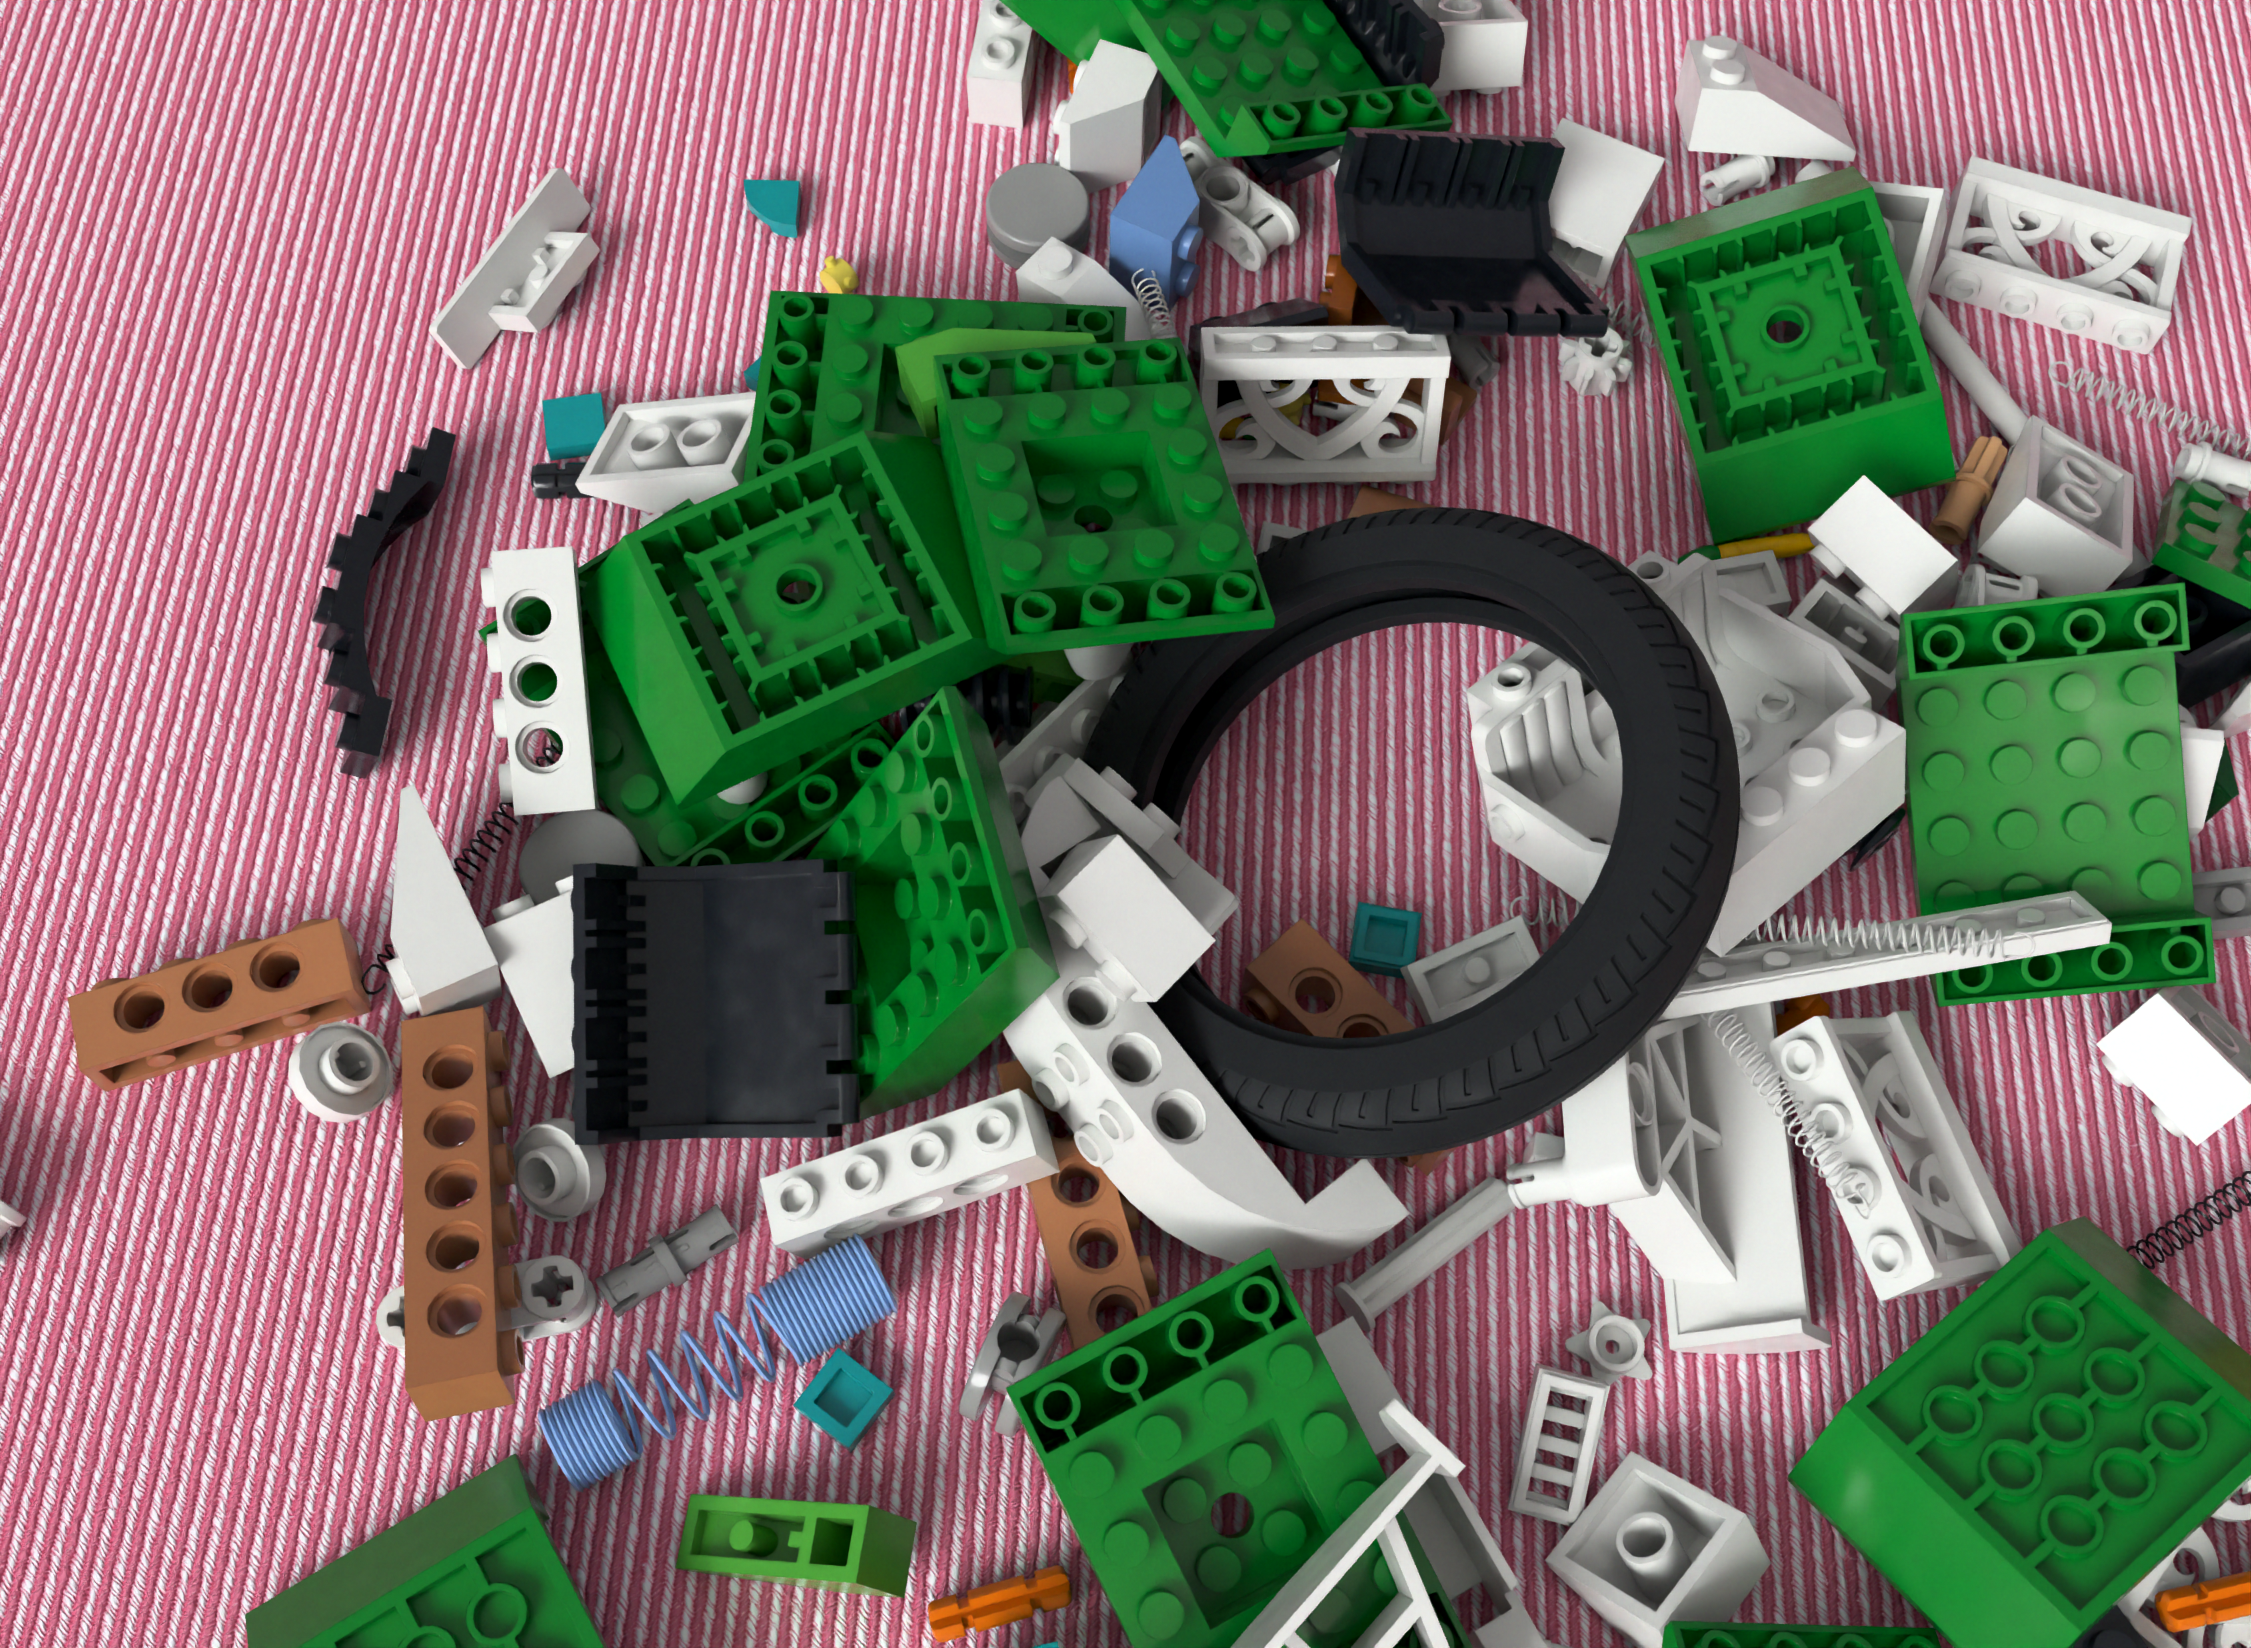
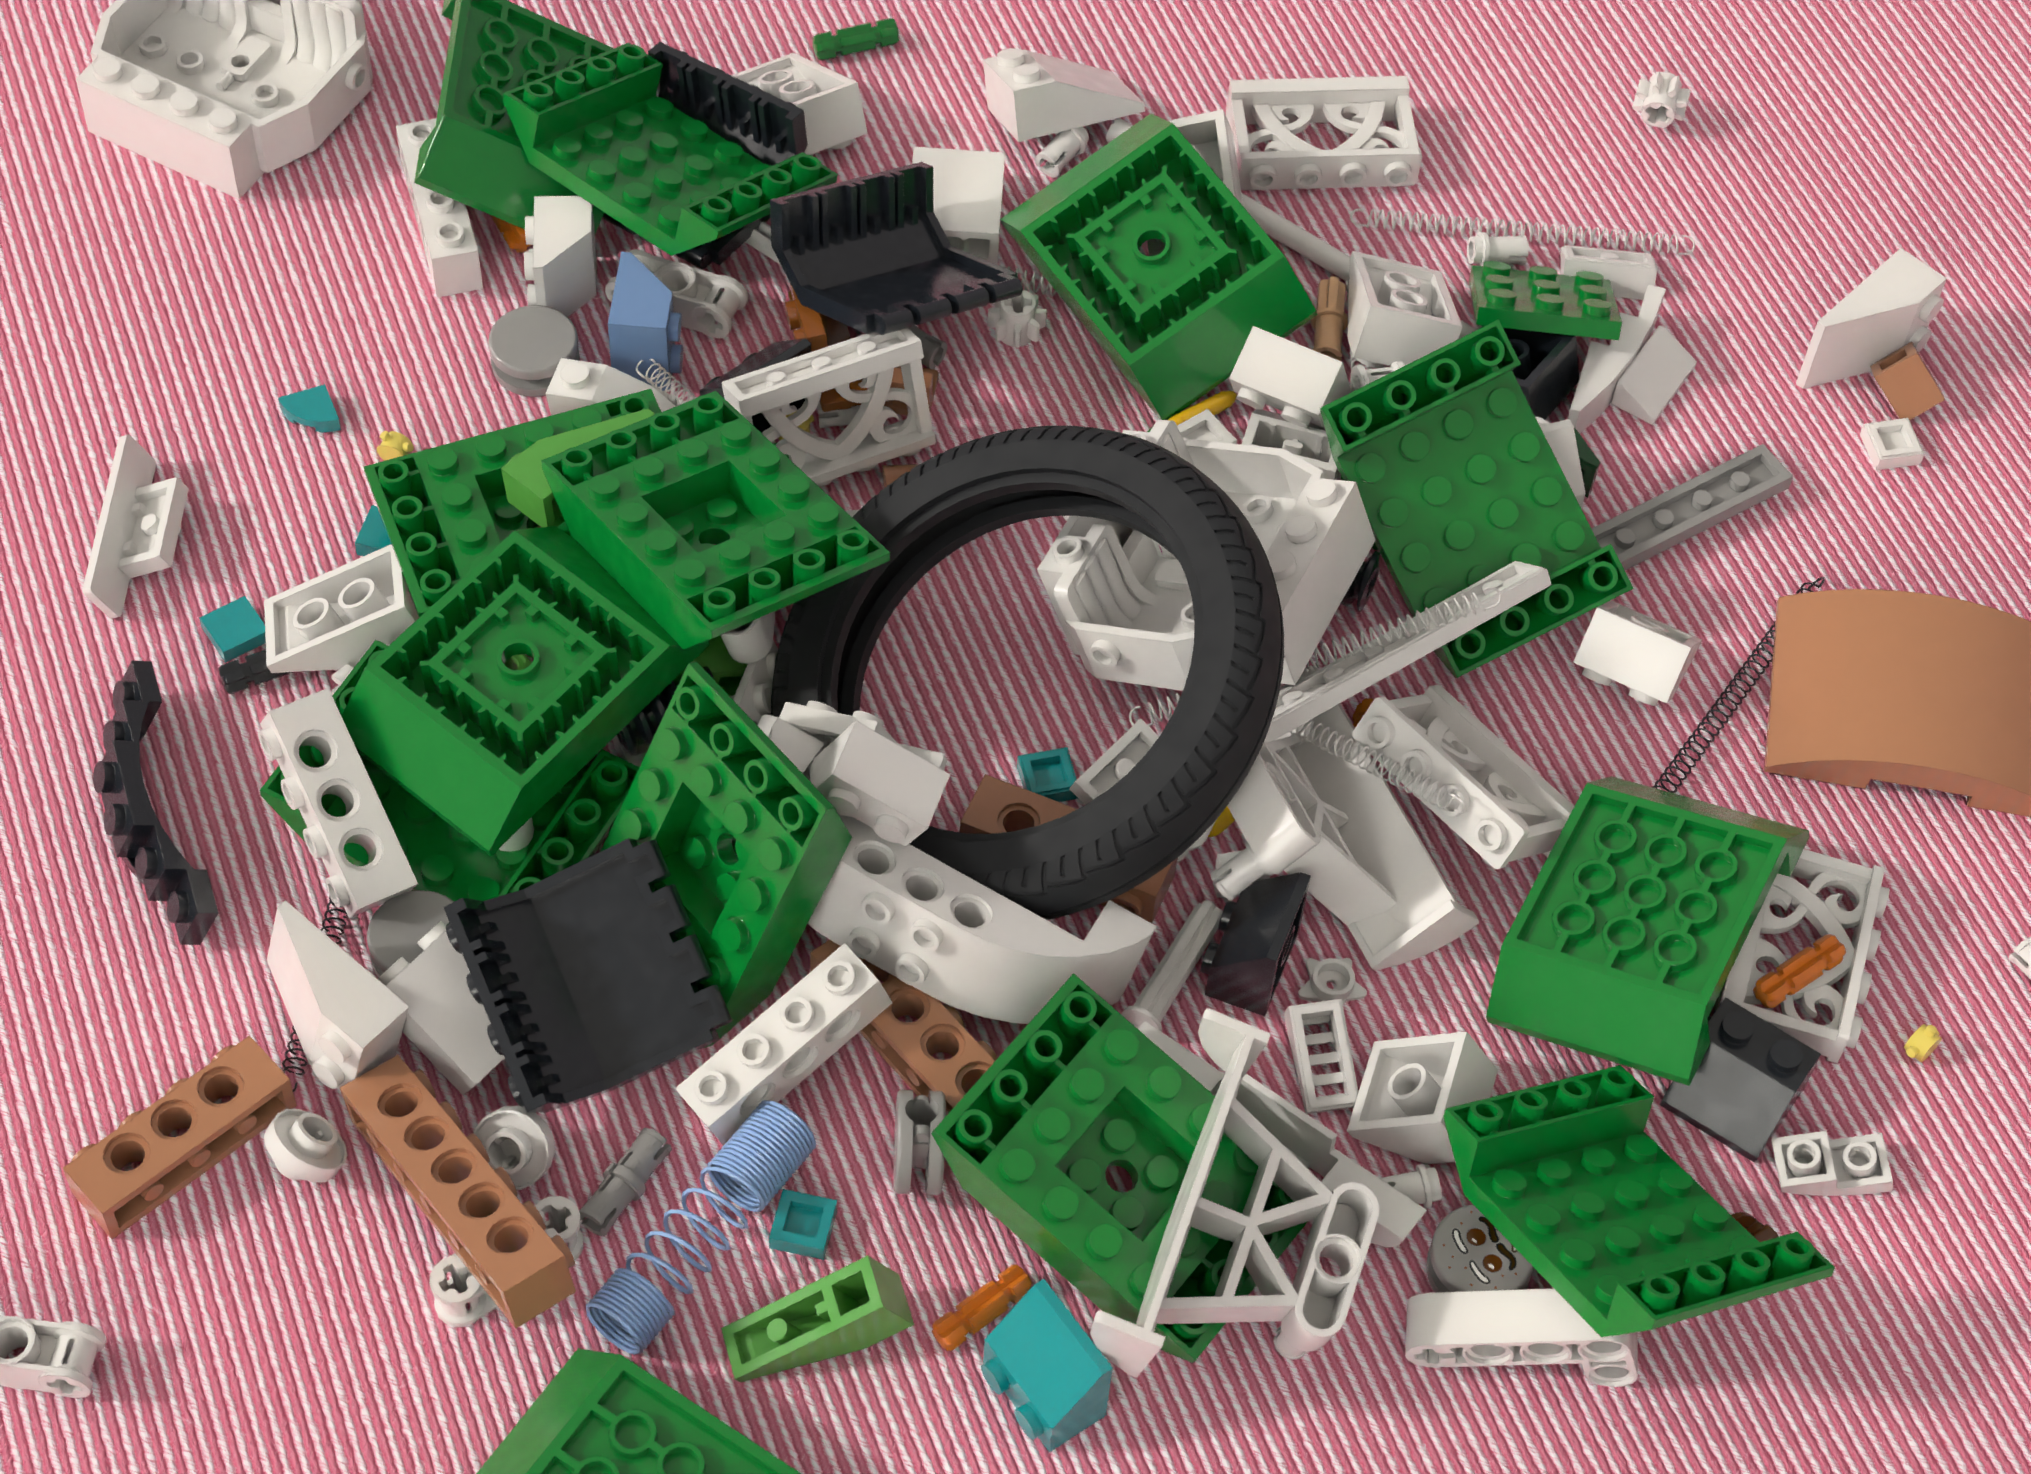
camera: 25 degrees left, 10 degrees down
(1534, 1265) = (1256, 942): none -> black slope

